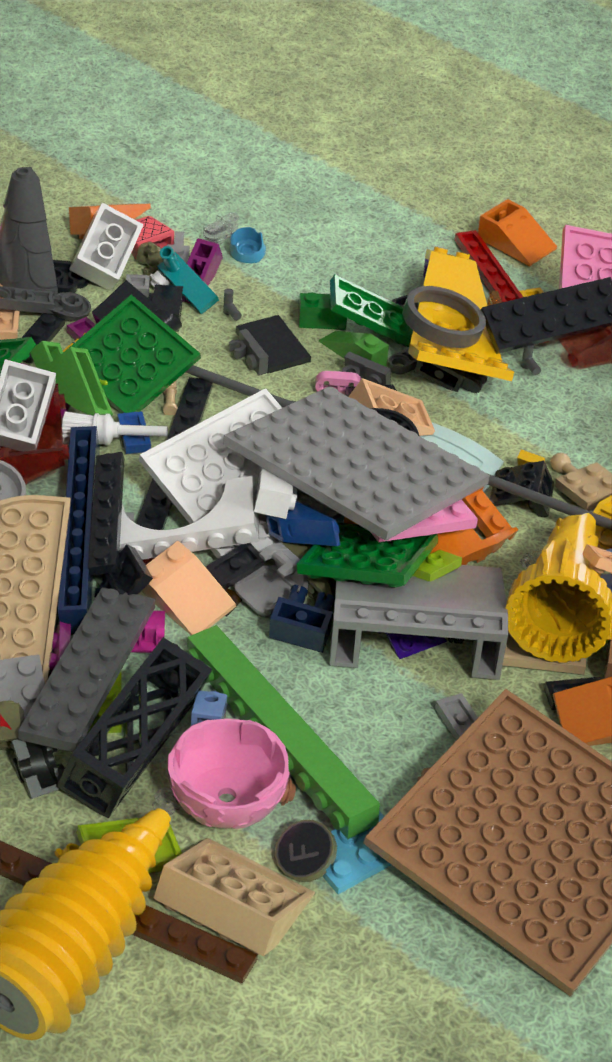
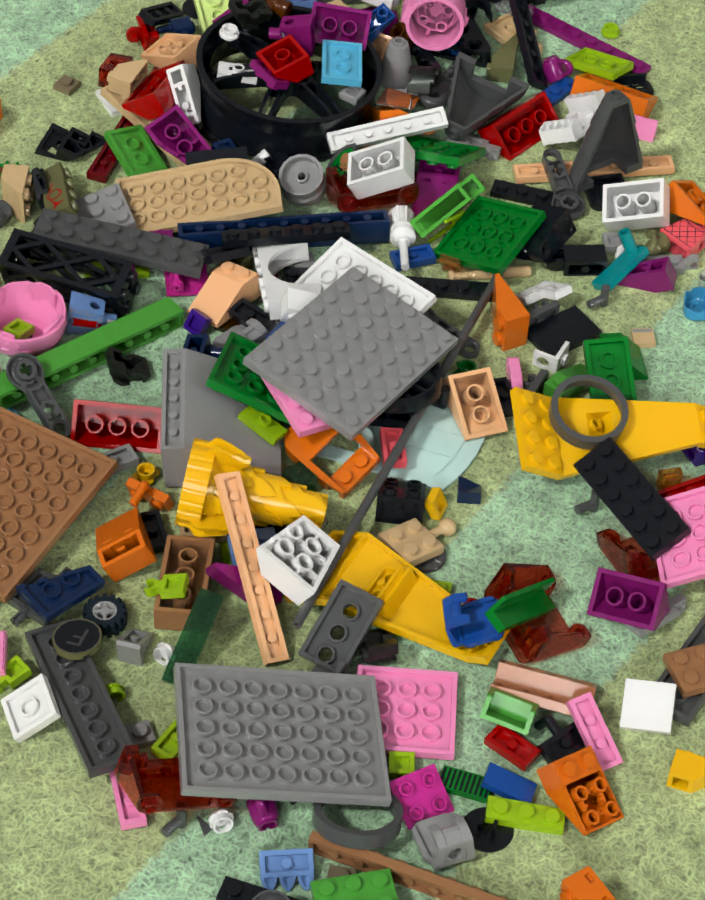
camera: 85 degrees right, 5 degrees up
(156, 403) = (450, 263): none -> clear orange plate
(211, 342) = (544, 289): none -> white tile
(228, 620) = (197, 322): none -> dark purple plate
(230, 790) = (20, 329): none -> lime plate
(259, 365) = (509, 317): none -> orange slope
(286, 292) = (643, 337): none -> tan tile
(303, 692) = (127, 368): none -> pearl dark grey cylinder
(318, 348) = (555, 362): none -> white bracket
(373, 766) = (36, 389): none -> dark grey beam
(401, 708) = (116, 424): none -> red slope
(475, 689) = (147, 472): none -> yellow plate
(502, 556) = (301, 475): none -> clear green brick
(508, 441) = (468, 491): none -> dark blue slope
(534, 680) = (143, 490): none -> orange plate

